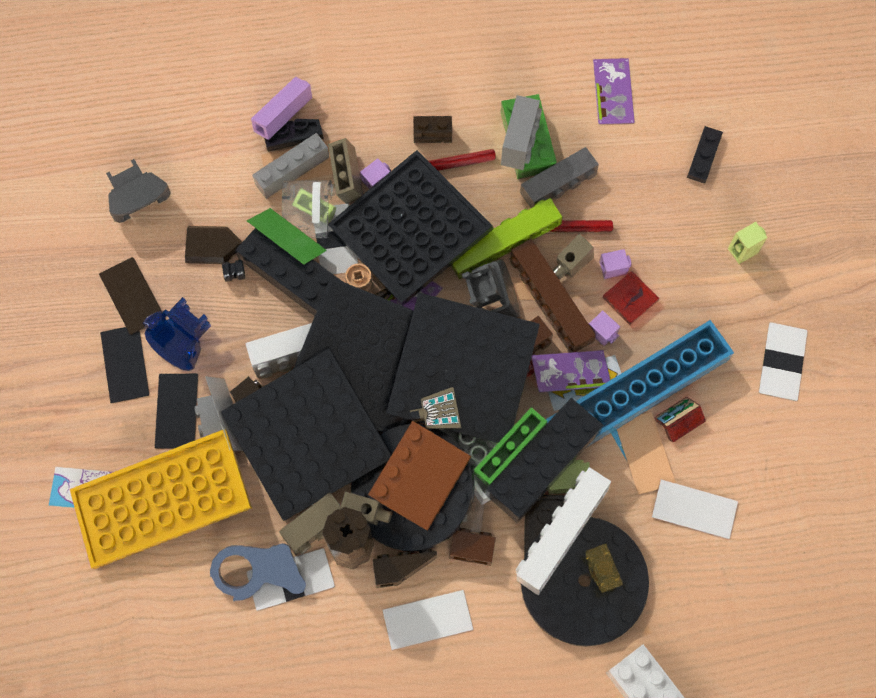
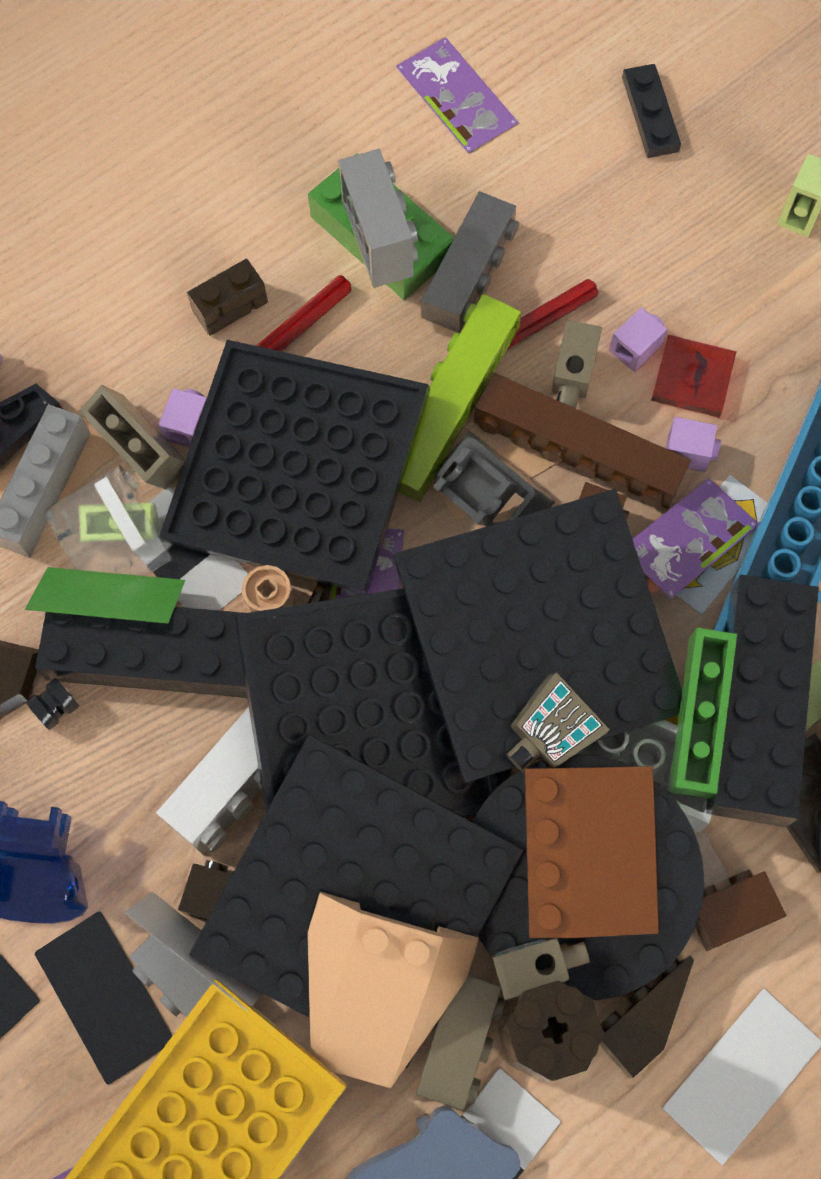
camera: 30 degrees left, 0 degrees up
(291, 476) = (377, 987): none -> light nougat wedge

